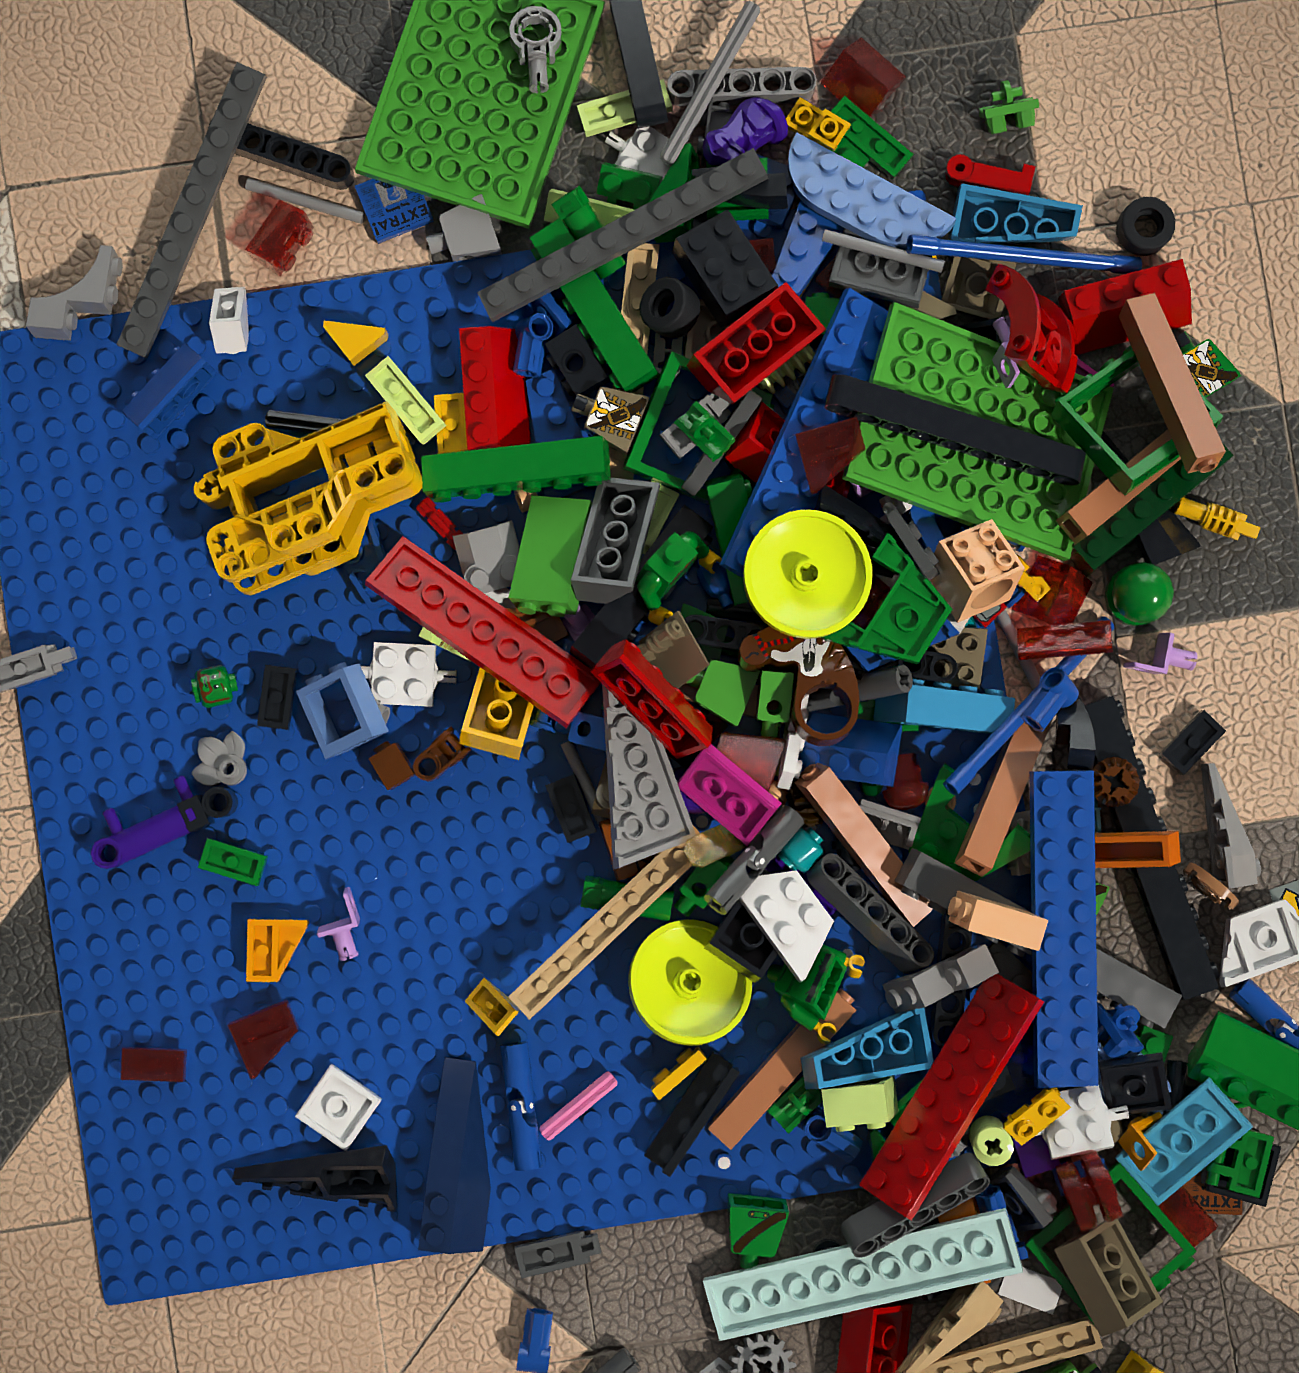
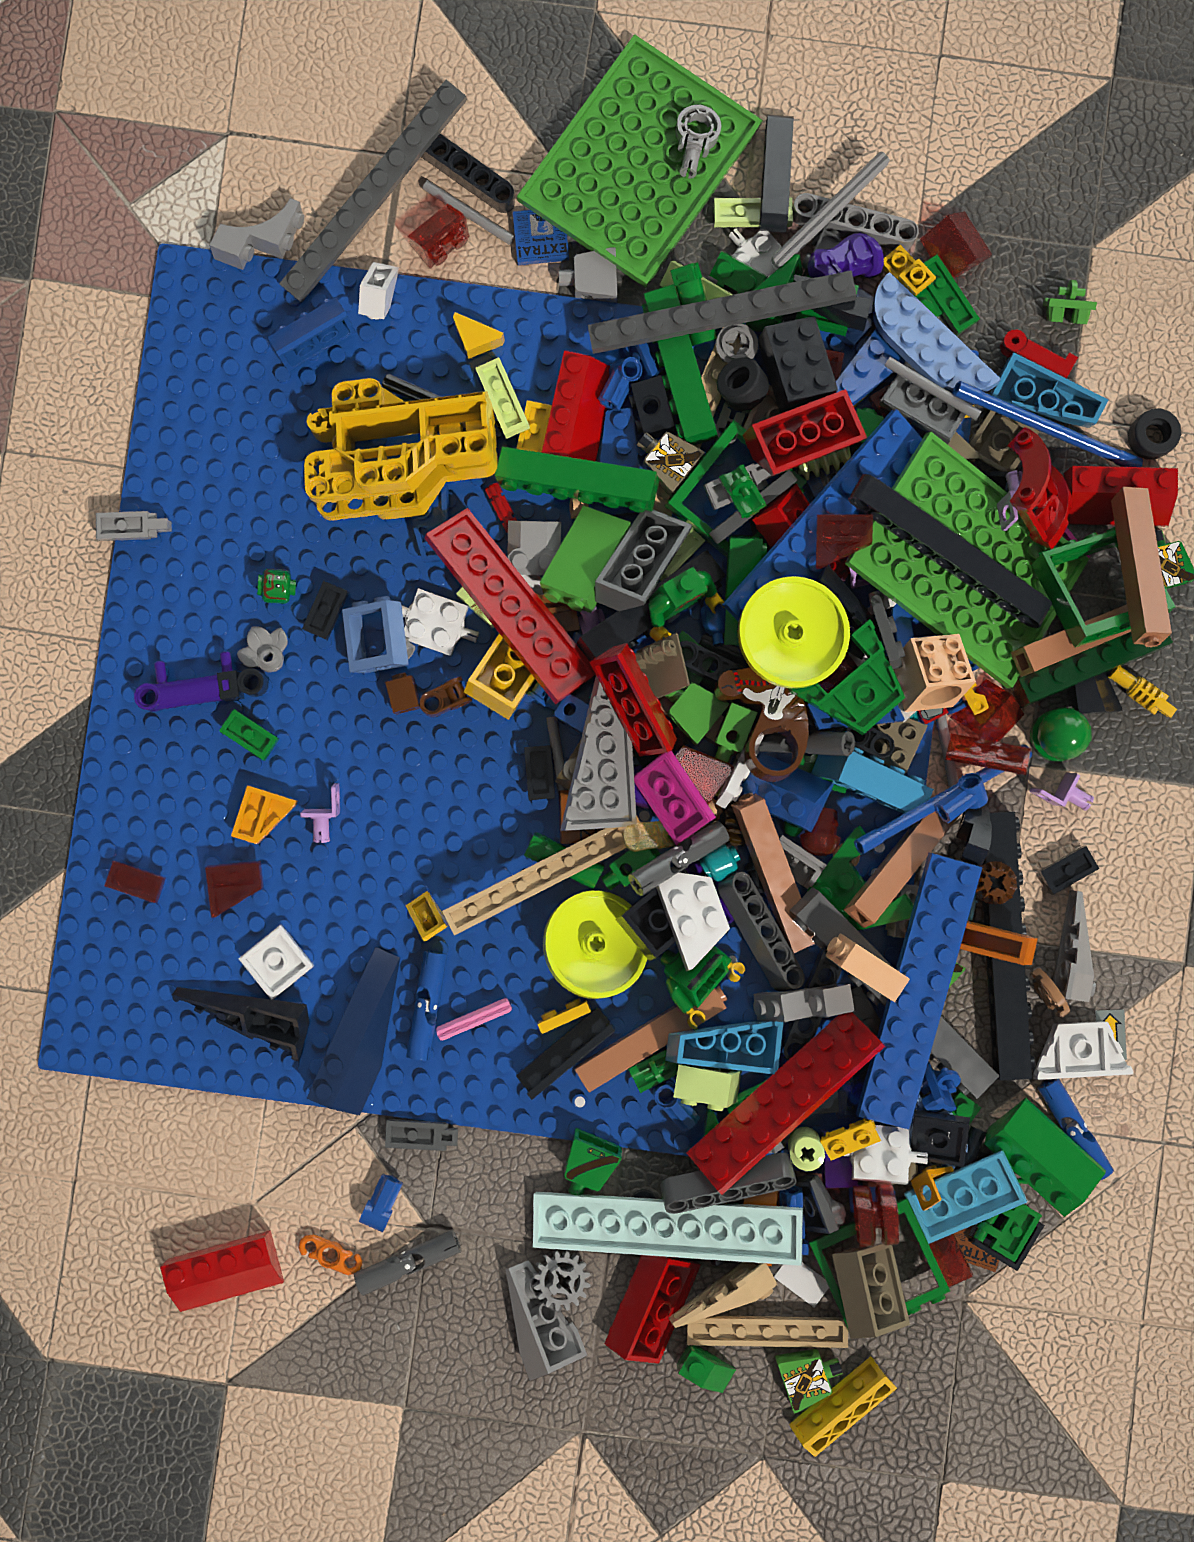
camera: 15 degrees right, 0 degrees up
(659, 253) = (729, 334): none -> light grey gear

